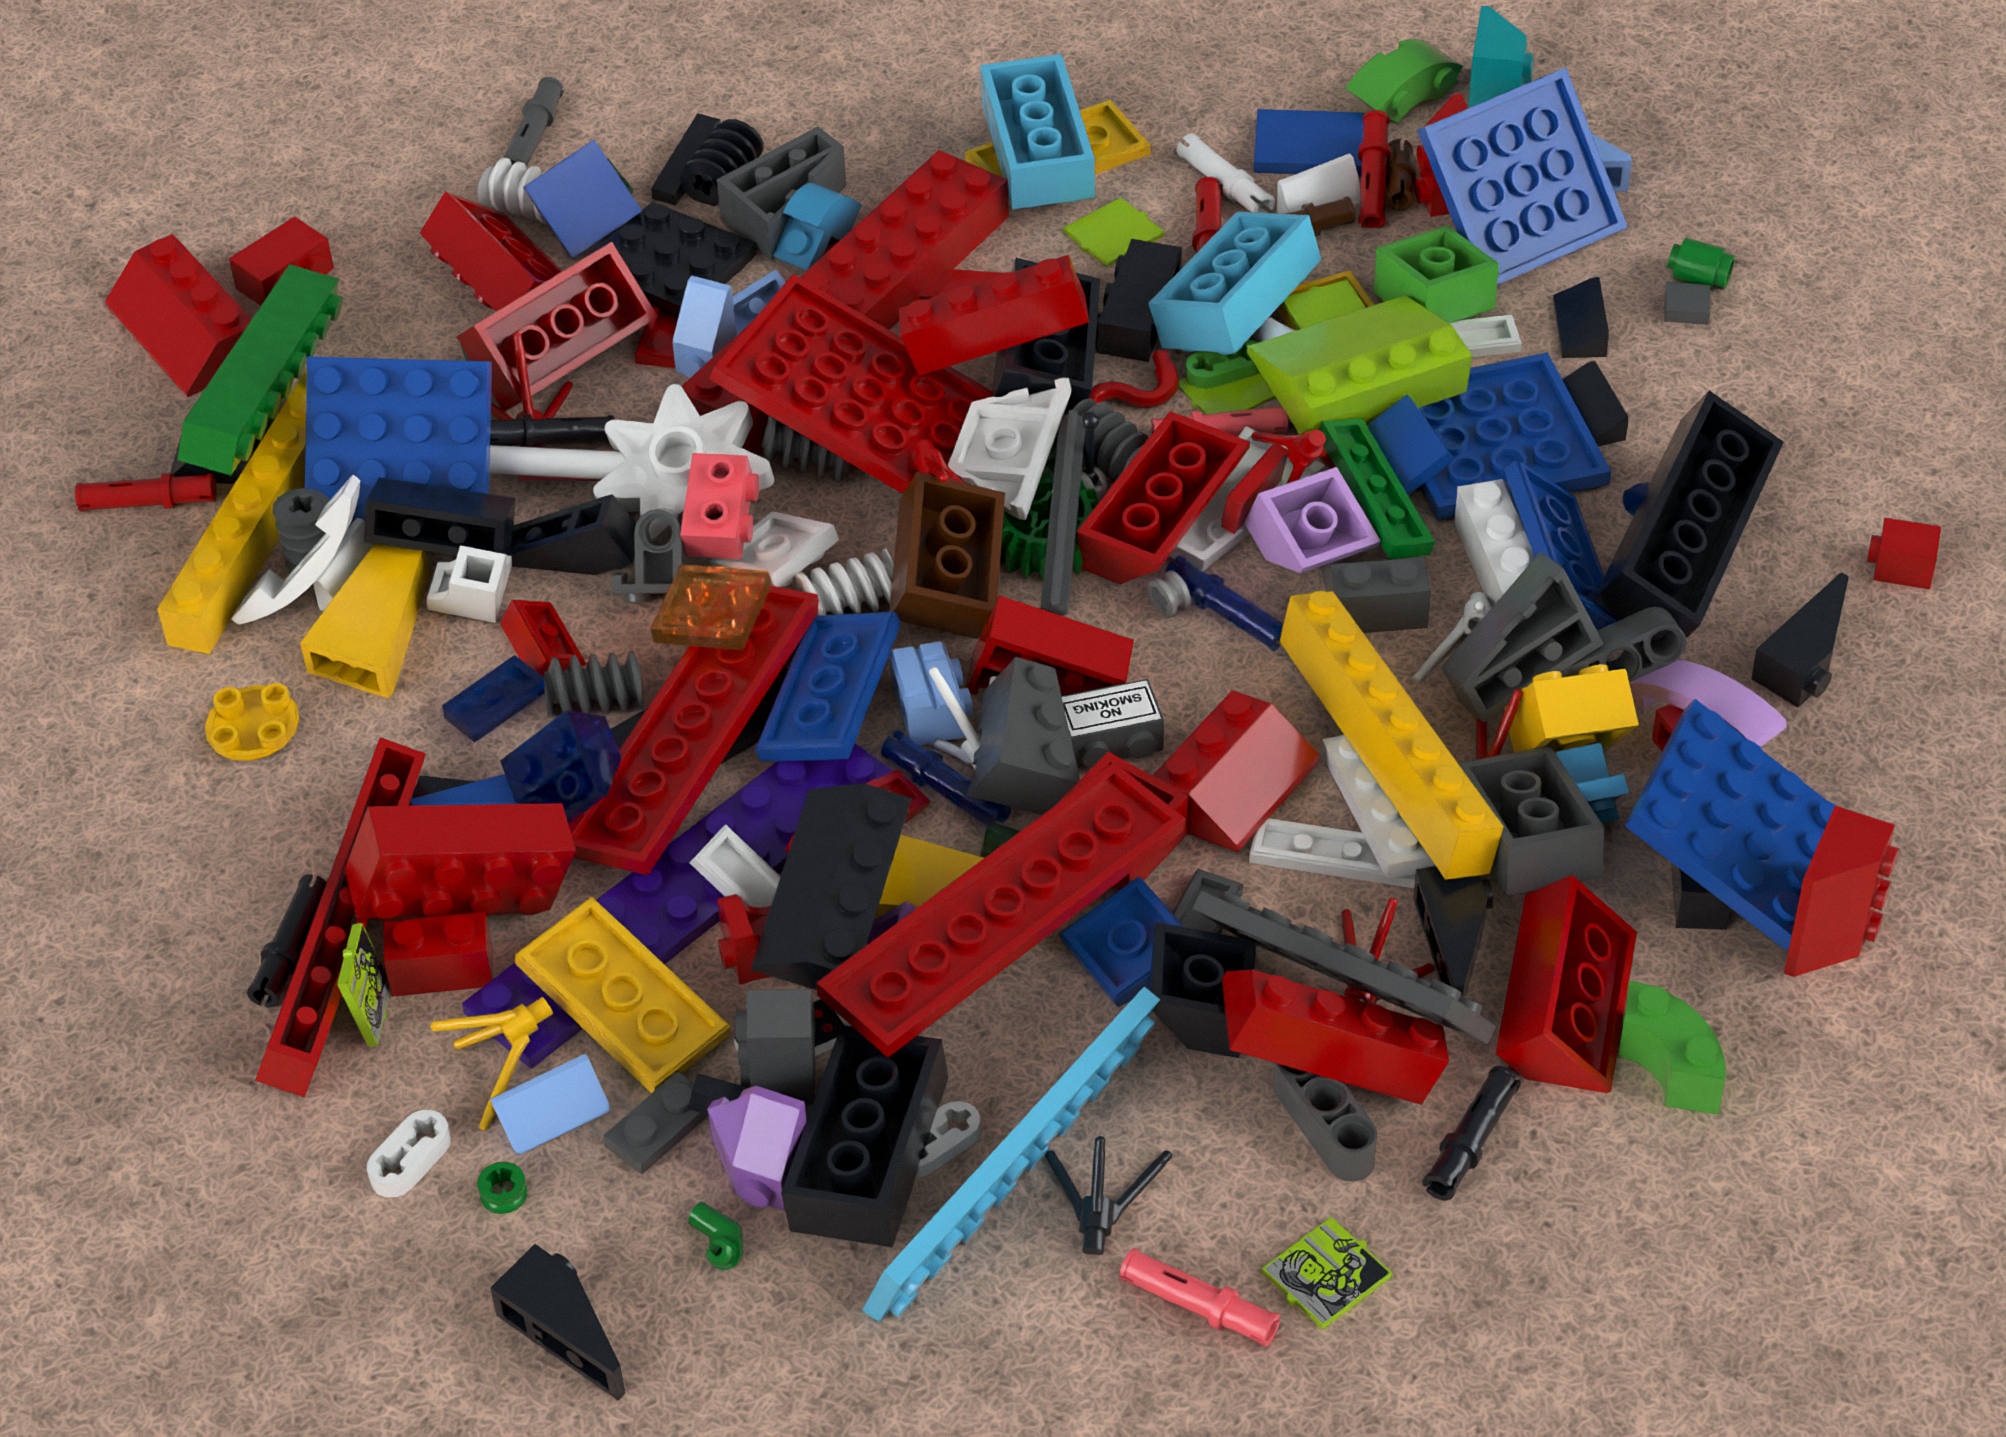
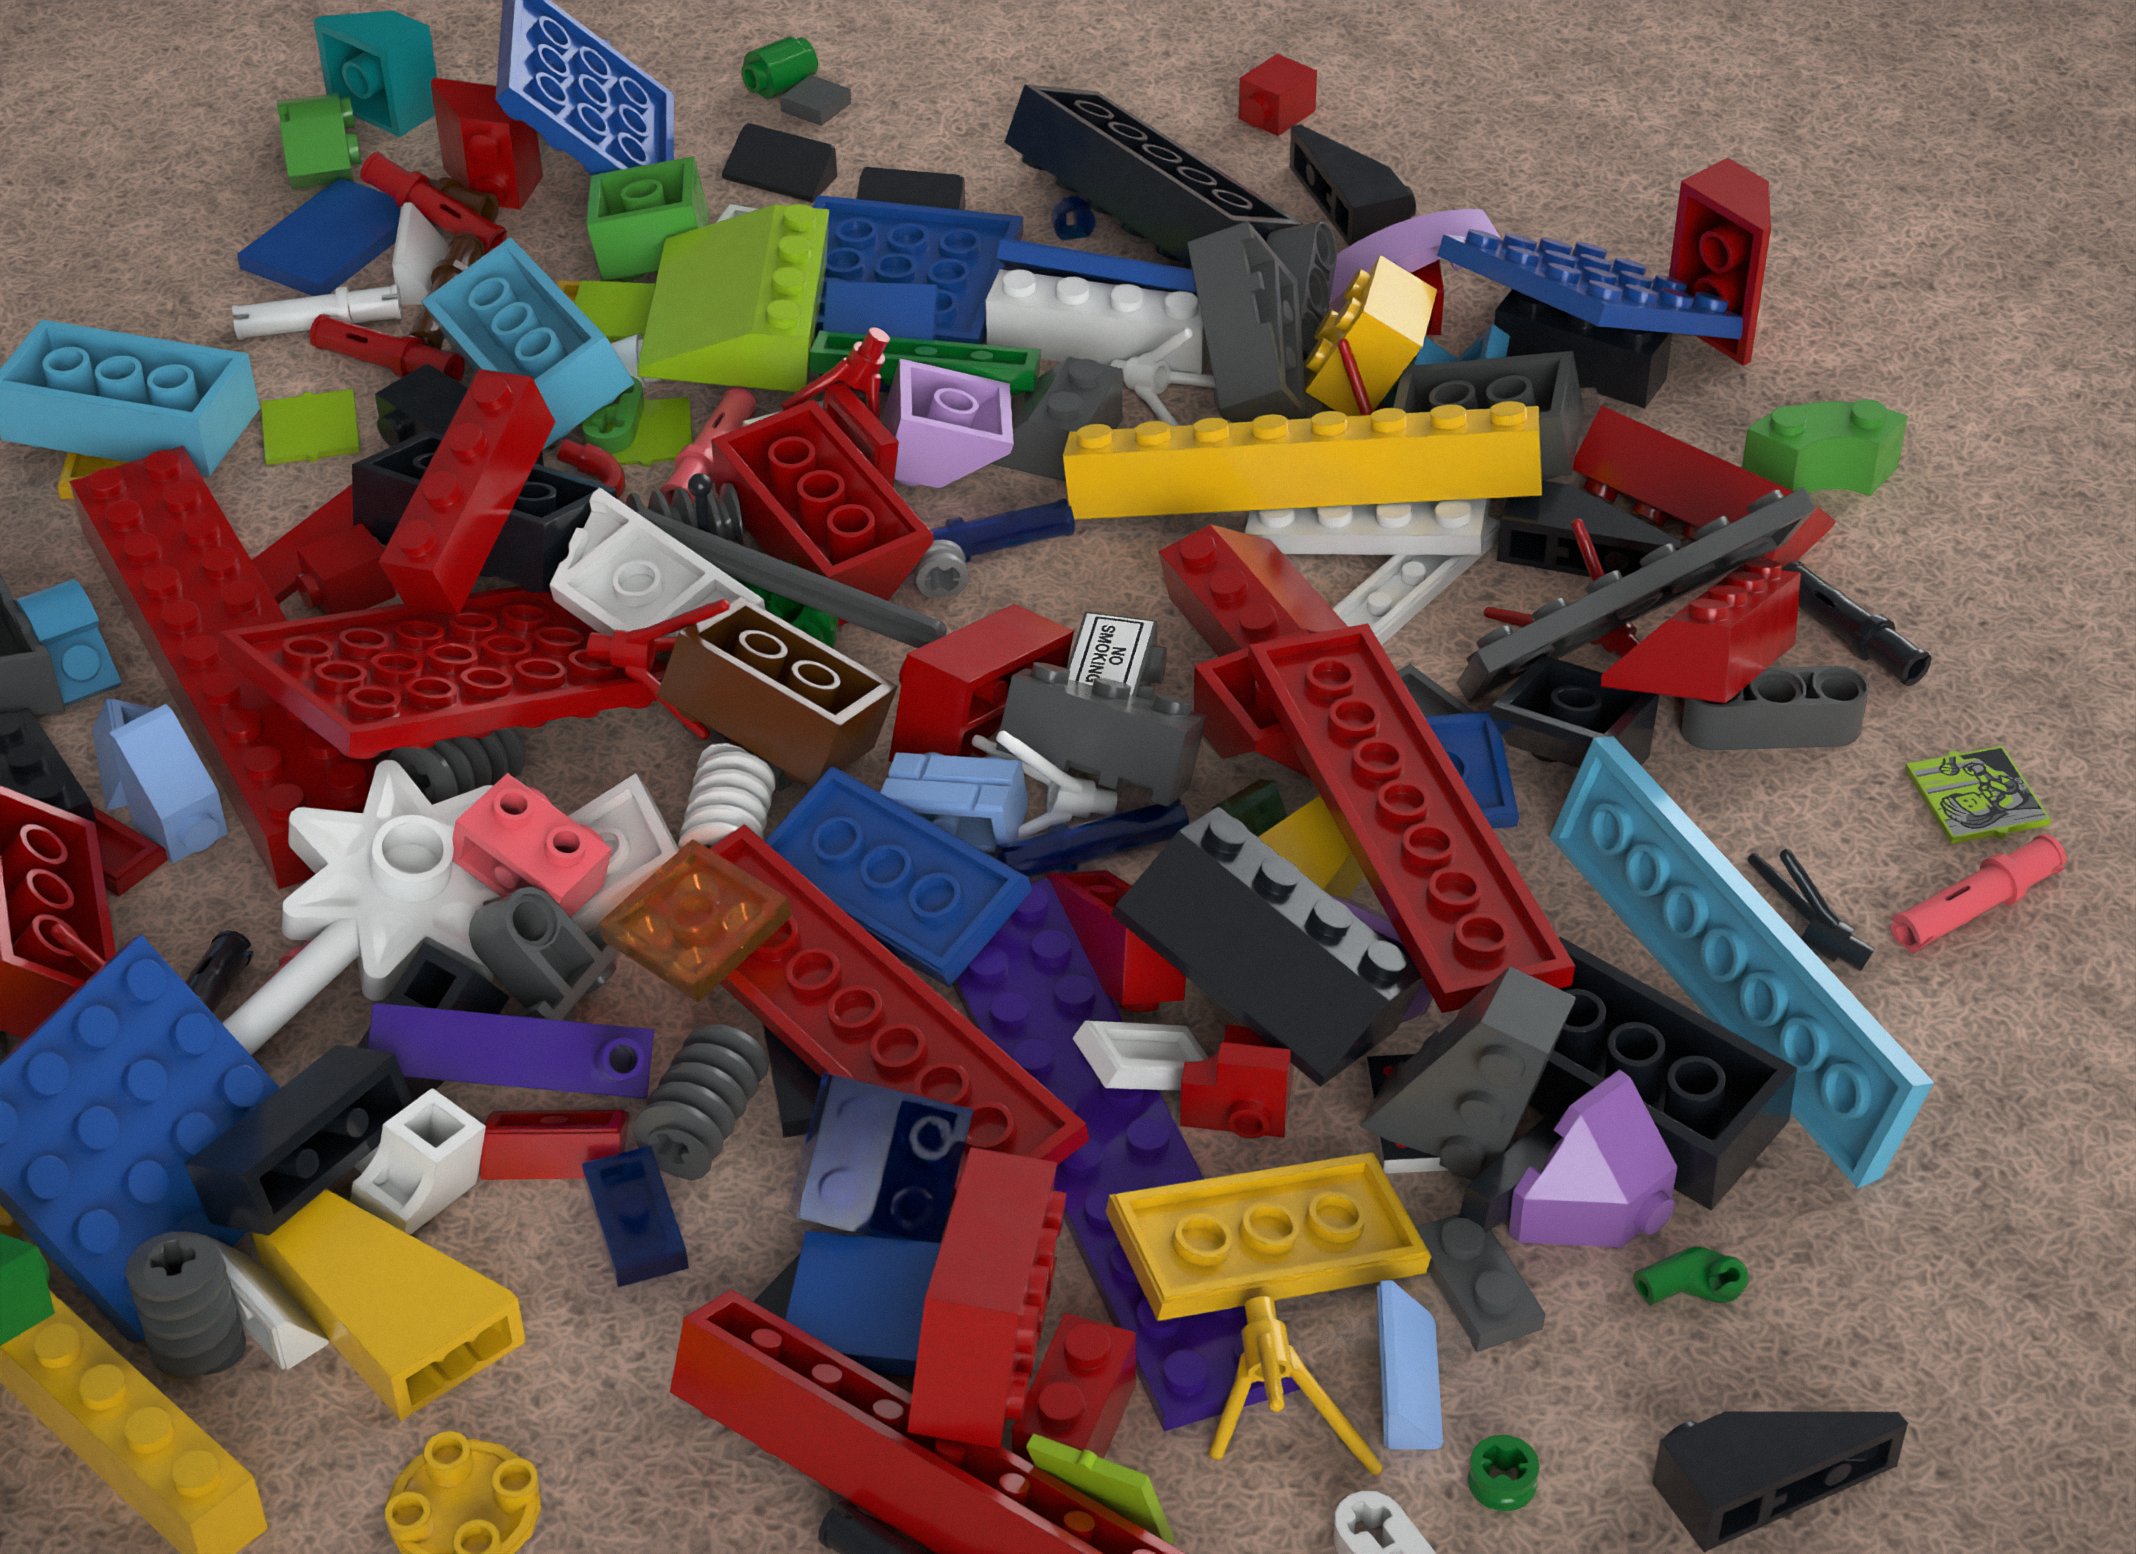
camera: 65 degrees left, 5 degrees down
(274, 593) = (263, 1303): white slope -> none
(586, 602) = (514, 1050): none -> dark purple piece

